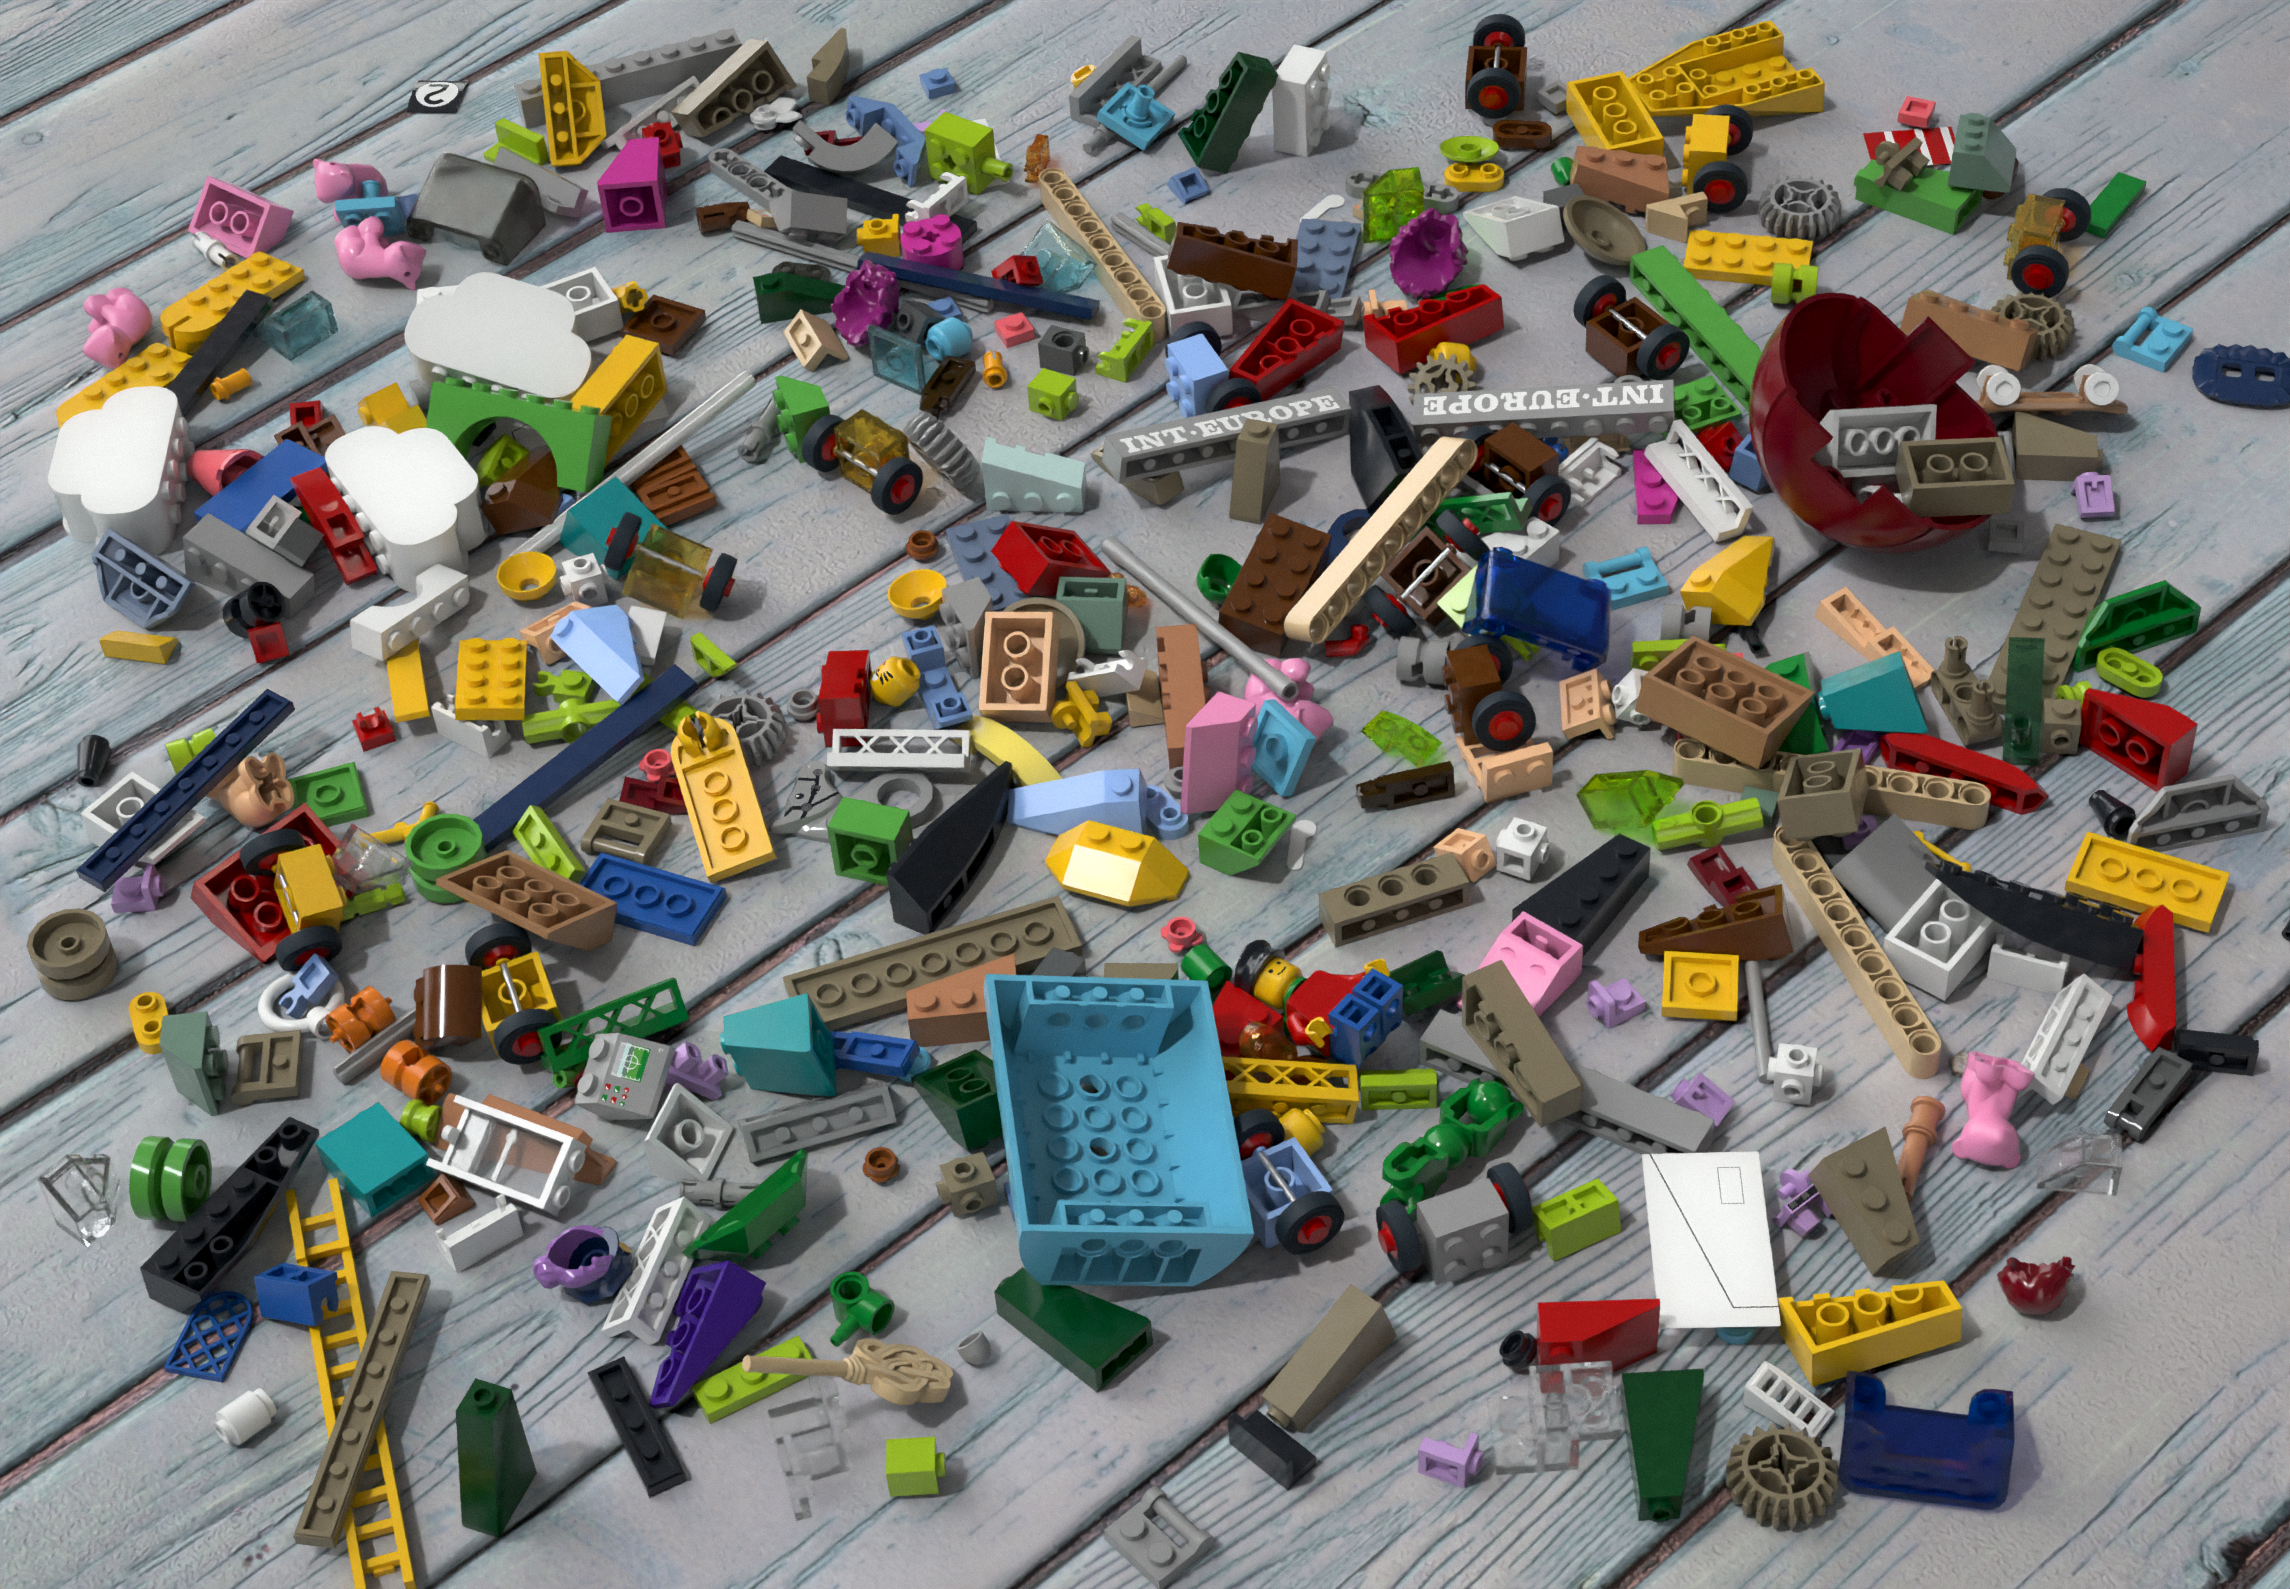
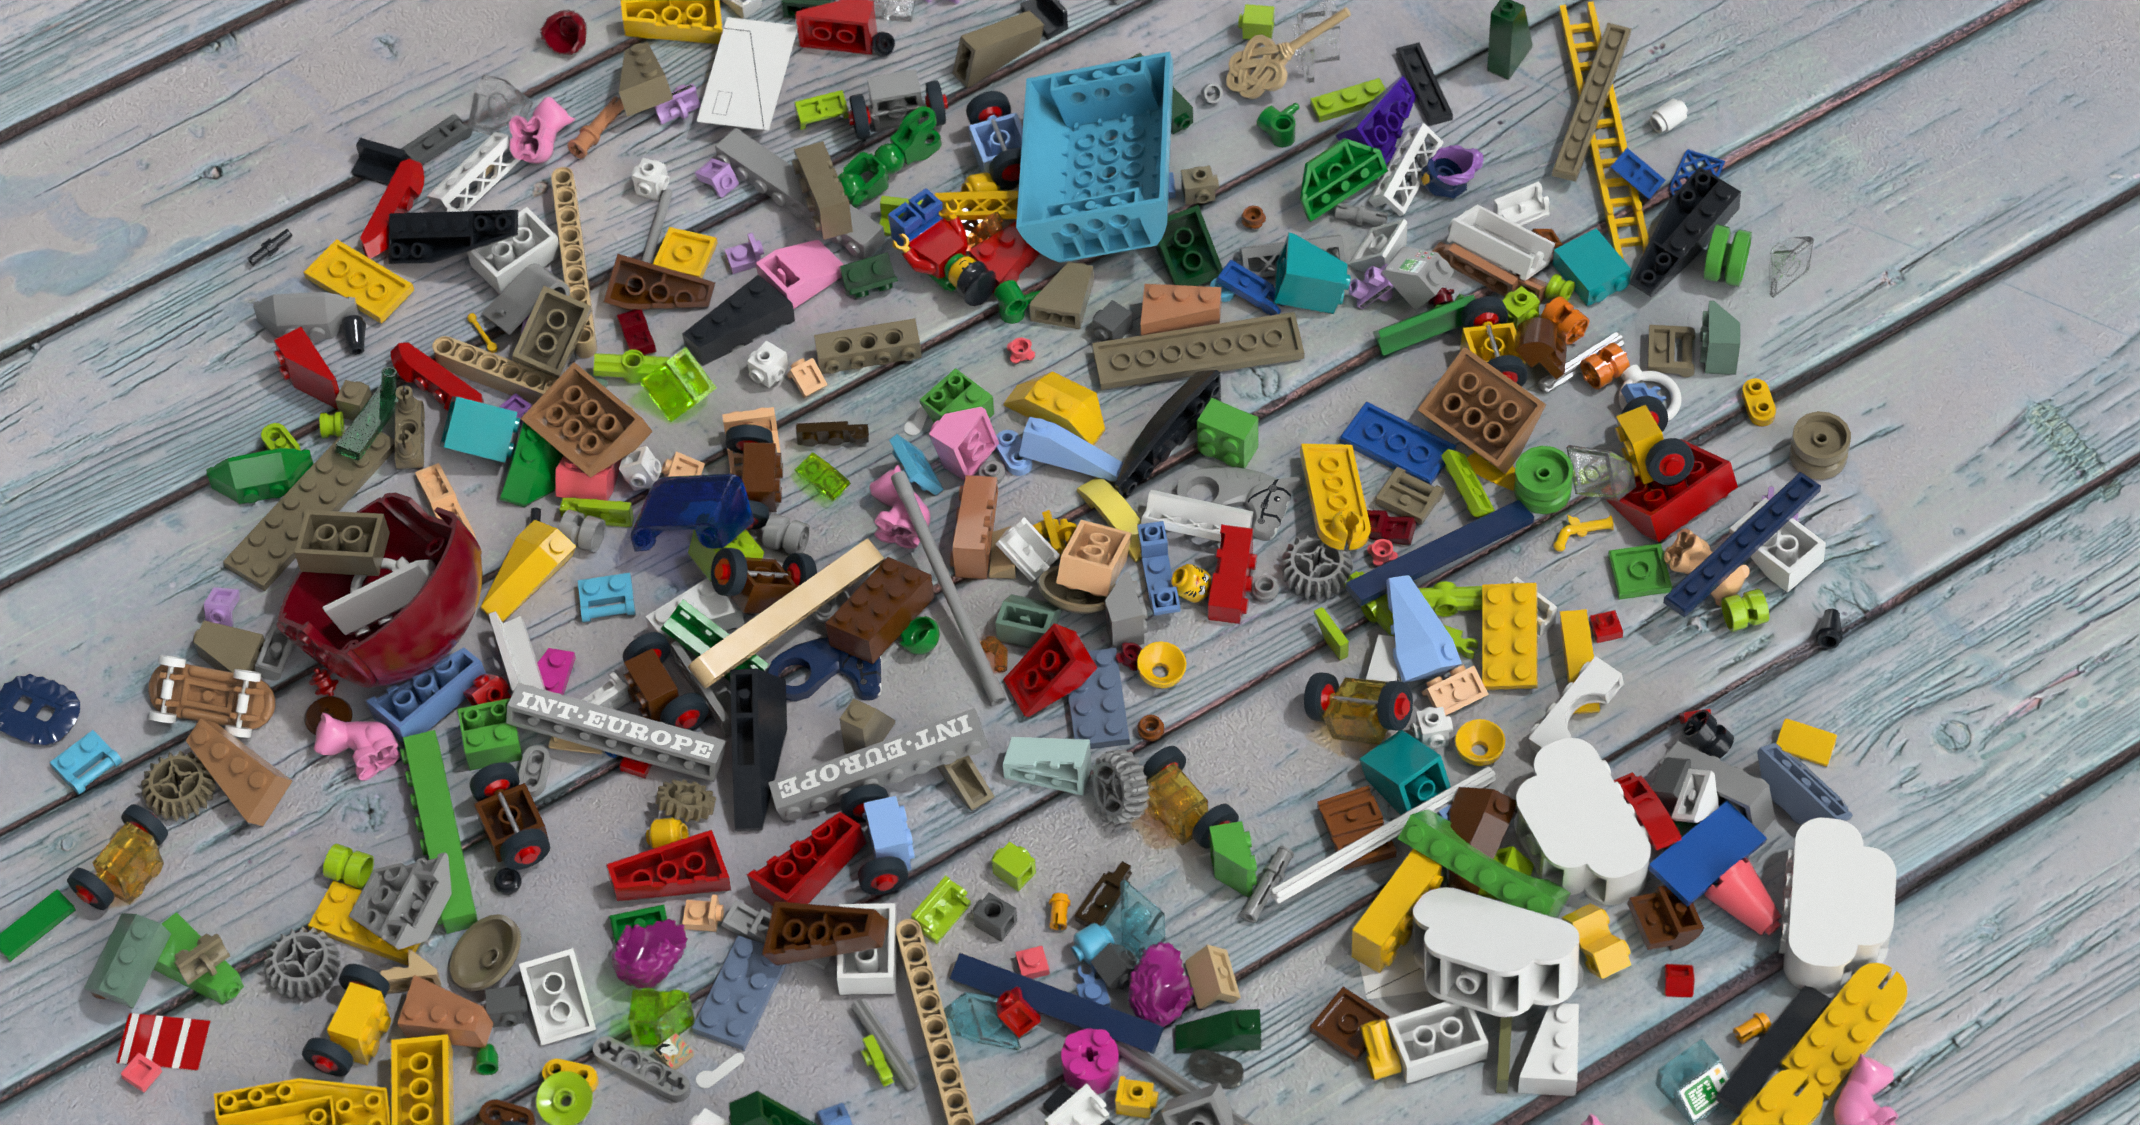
camera: 170 degrees left, 10 degrees up
(480, 1073) = (1521, 306): none -> lime brick
(1713, 241) = (404, 901): none -> light grey wedge

